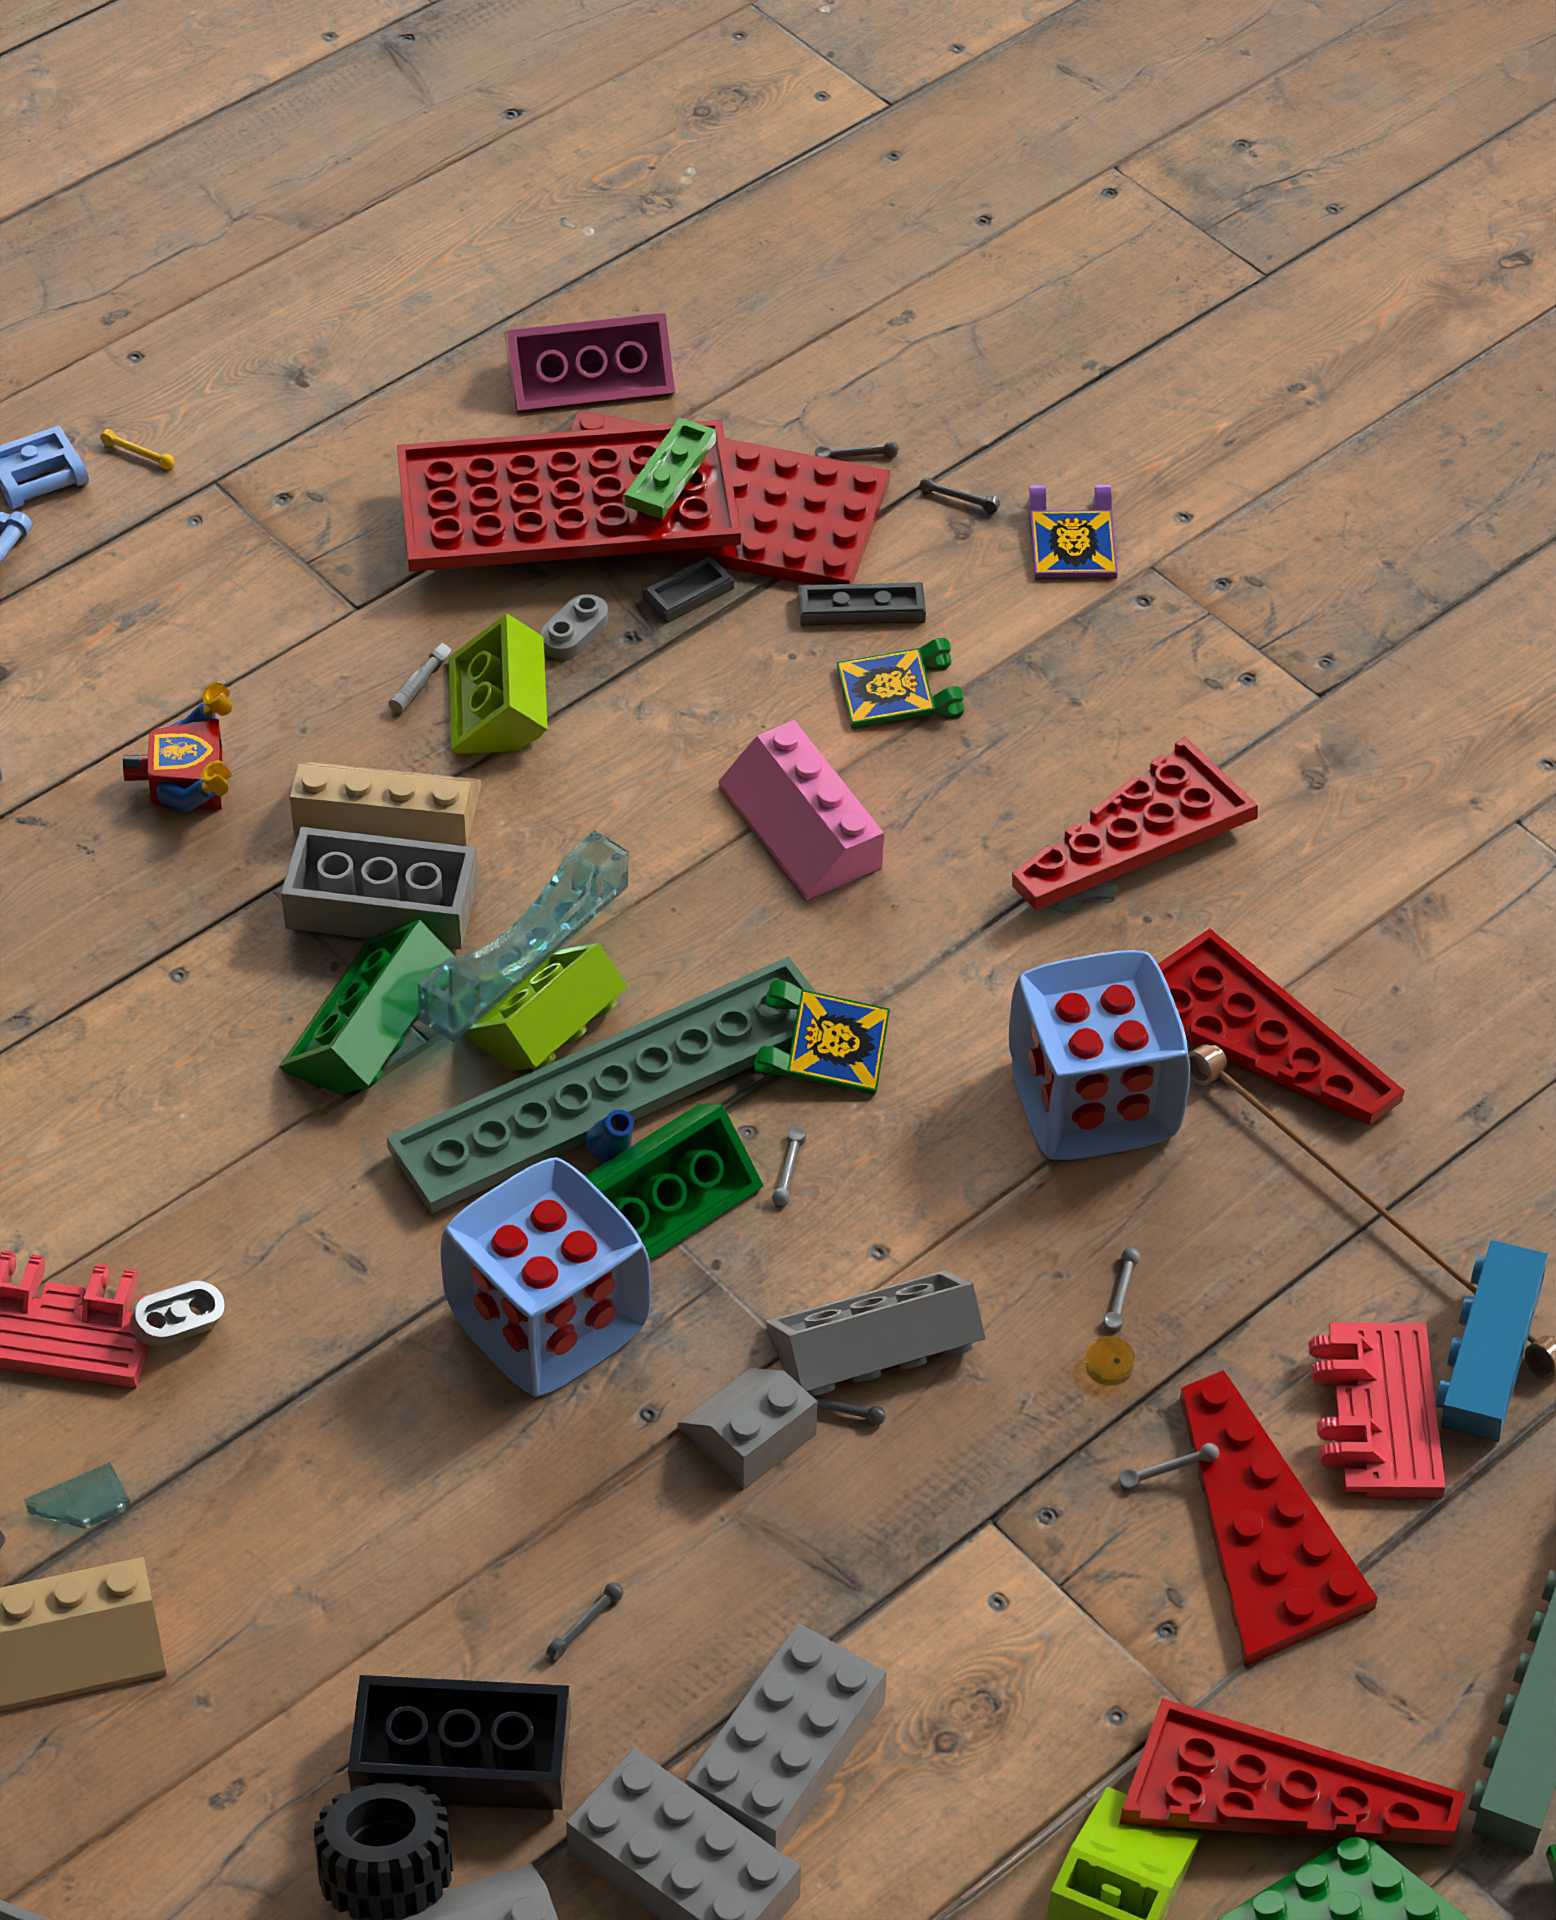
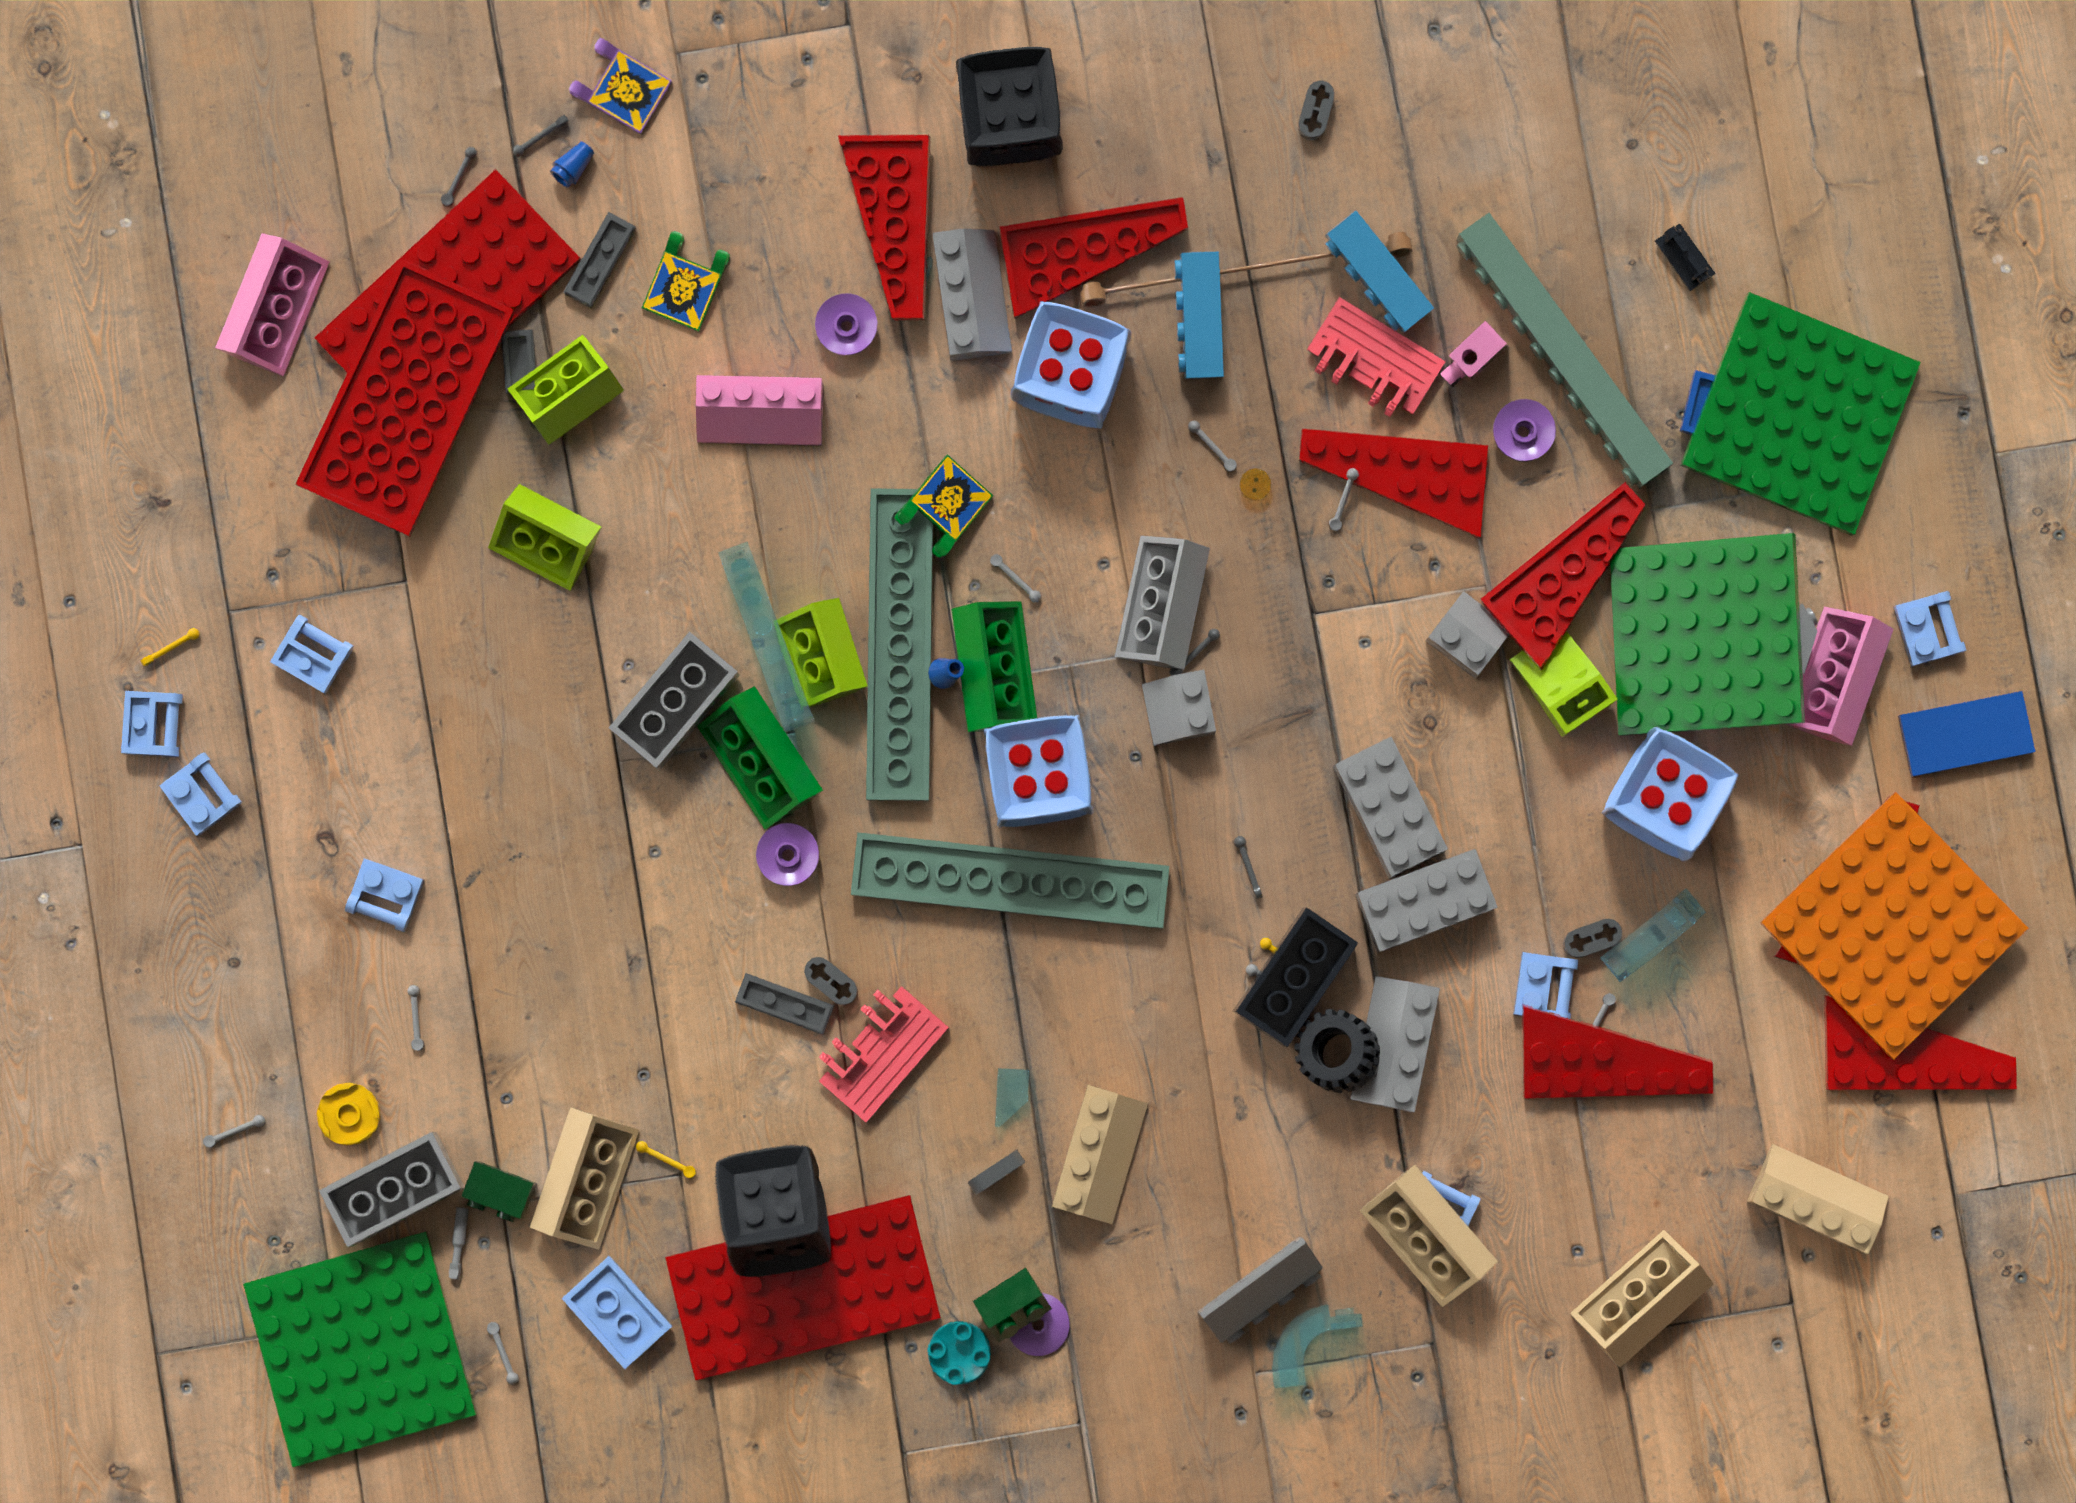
camera: 55 degrees left, 35 degrees up
(58, 1192) = (784, 1003): none -> dark grey tile
(110, 1222) = (825, 986): none -> dark grey beam
(173, 1313) = (922, 984): plate -> none
(186, 757) = (491, 763): torso -> none
(196, 560) = (306, 663): none -> light blue plate
(259, 1080) = (775, 842): none -> medium lavender dish
(384, 803) = (593, 654): tan slope -> none
(385, 1355) = (1010, 880): none -> sand green plate
(418, 679) = (496, 577): light grey piece -> none
(579, 622) = (510, 453): light grey plate -> none
(670, 468) = (435, 323): bright green plate -> none
(684, 634) = (566, 389): none -> lime slope
(949, 528) = (572, 164): none -> blue cone
(969, 842) = (841, 309): none -> medium lavender dish
(1100, 1711) = (1468, 635): none -> light grey slope
(1128, 911) = (972, 293): none -> light grey slope
(1274, 1177) = (1200, 315): none -> dark azure brick
(1357, 845) = (1009, 106): none -> black piece
(1436, 1610) = (1524, 414): none -> medium lavender dish
(1486, 1506) = (1485, 344): none -> bright pink torso

